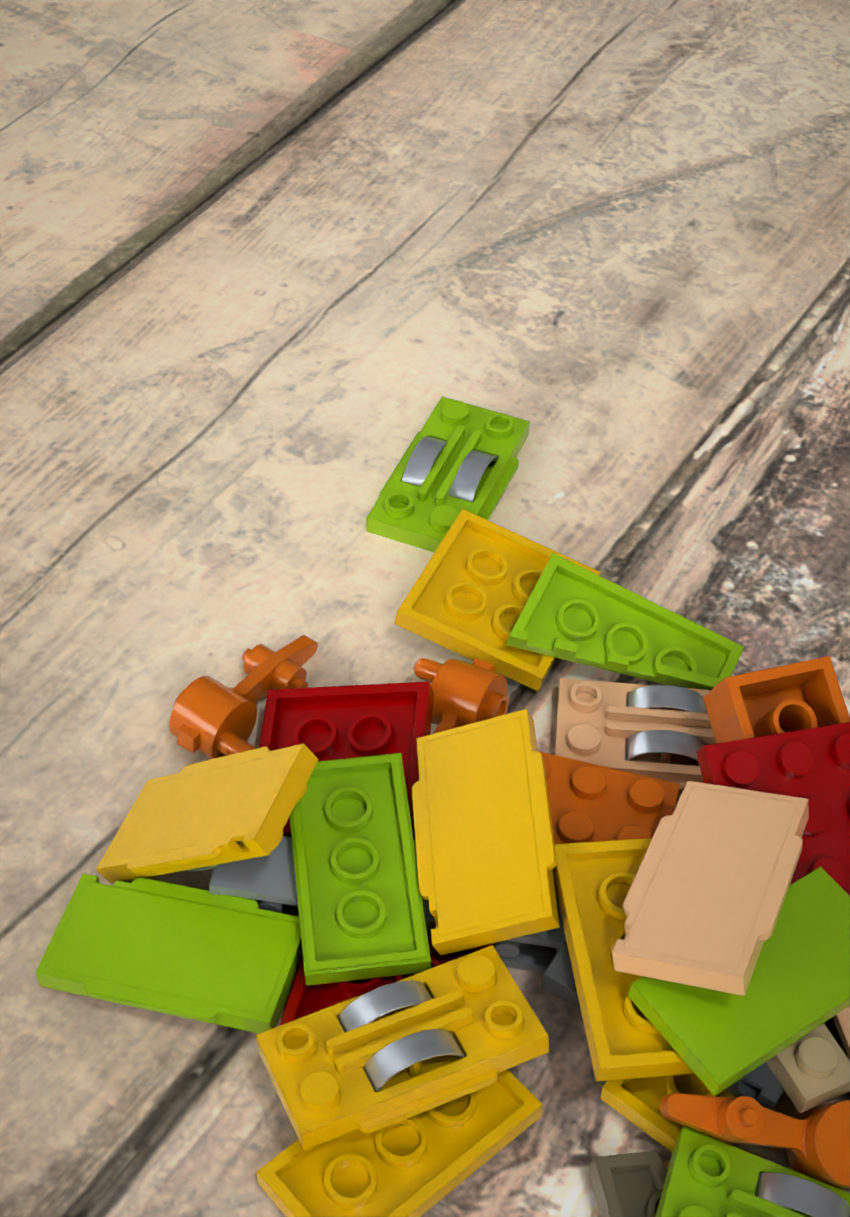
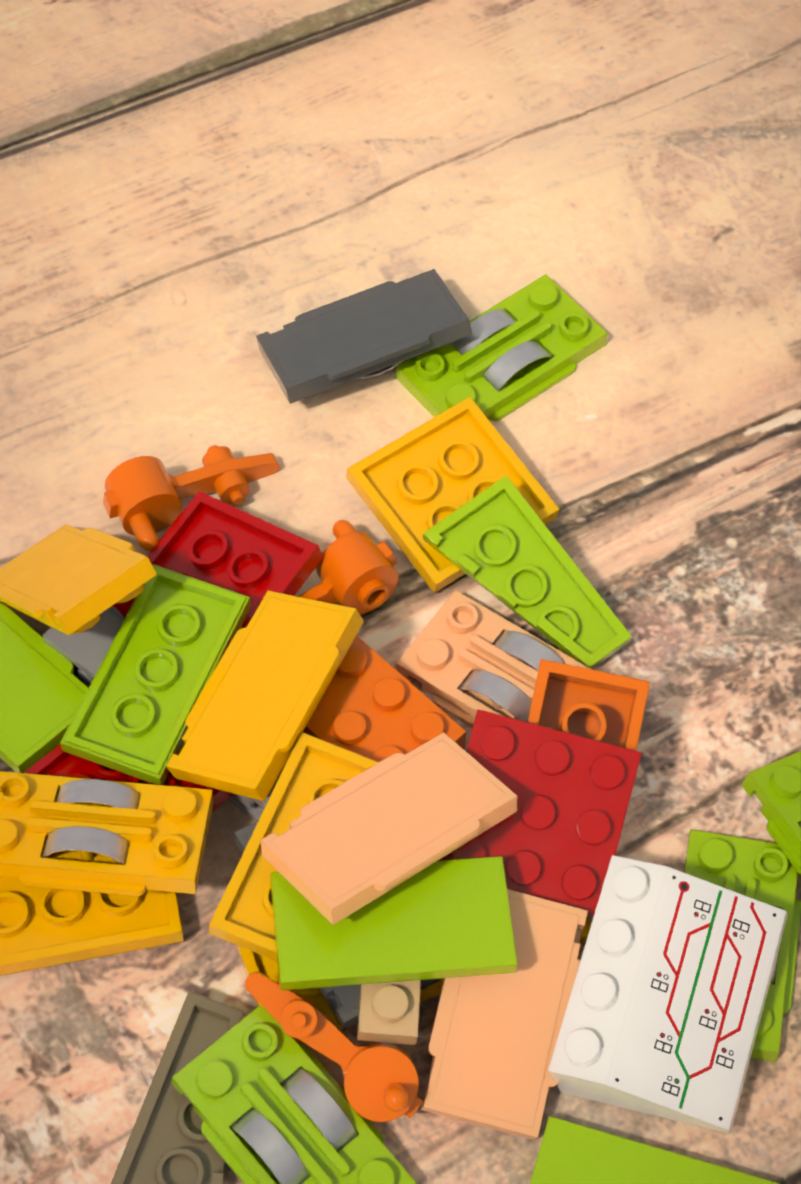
camera: 30 degrees right, 10 degrees up
(322, 501) = (363, 335): none -> dark grey piece

